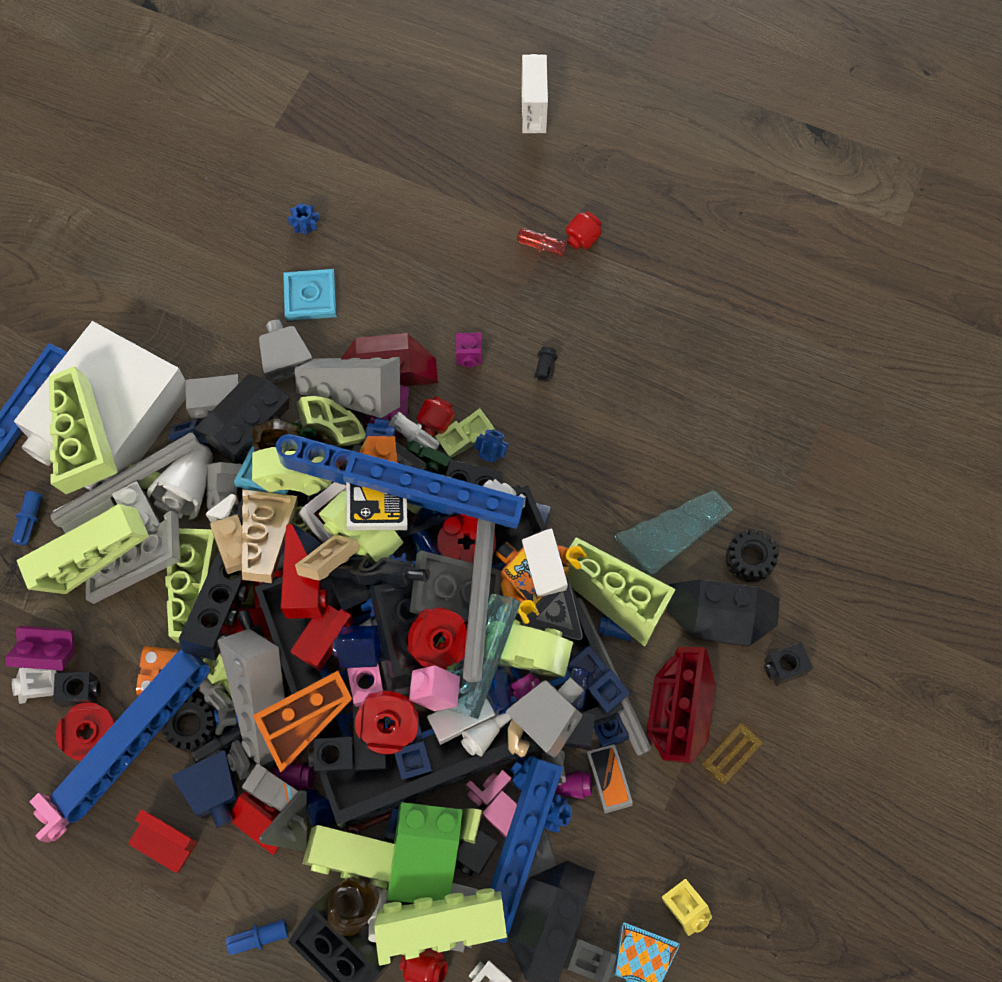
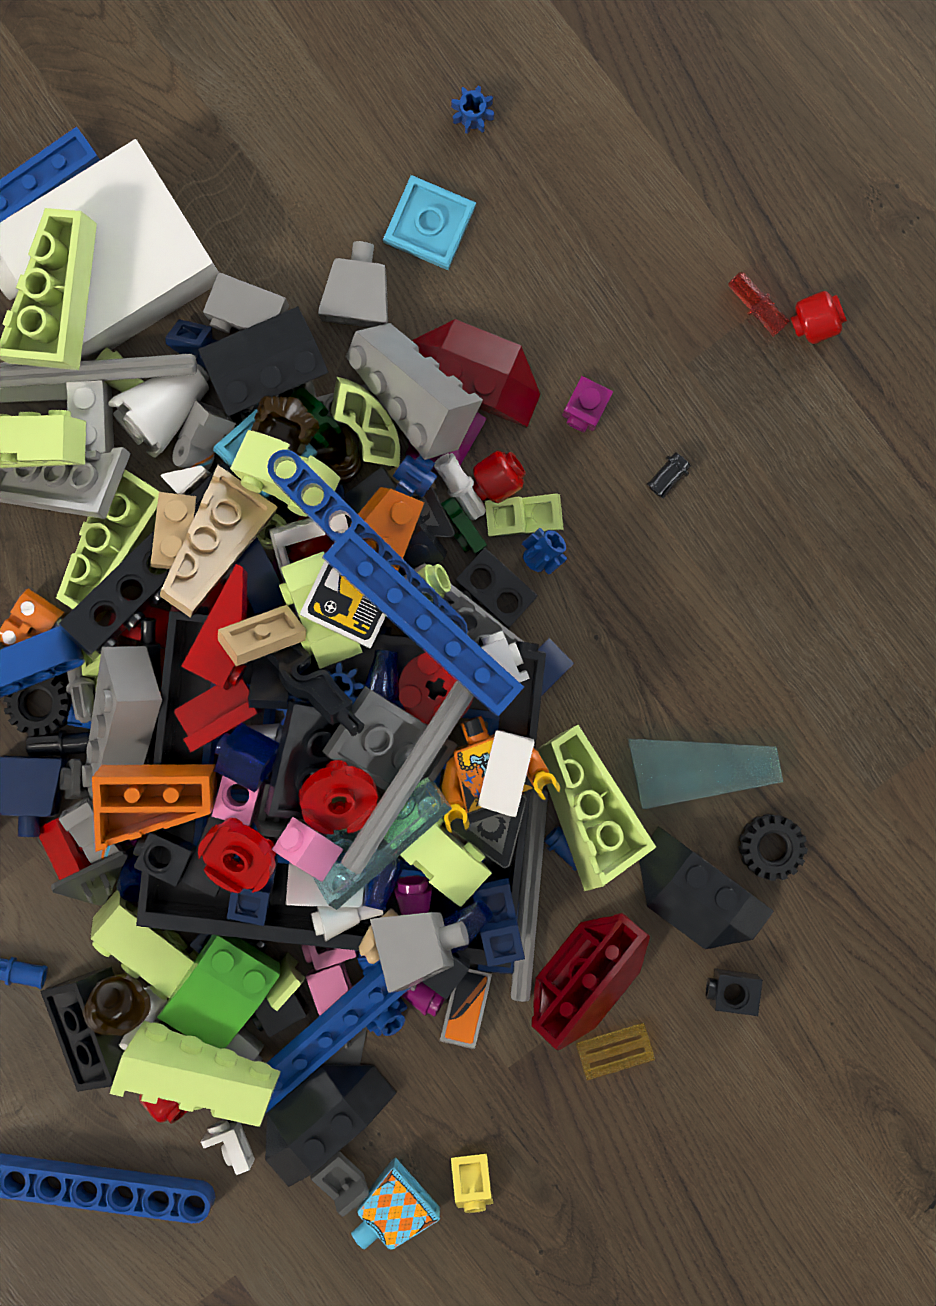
camera: 30 degrees right, 20 degrees up
(226, 718) = (78, 728): dark grey hand -> none
(534, 93) = (869, 78): white window -> none

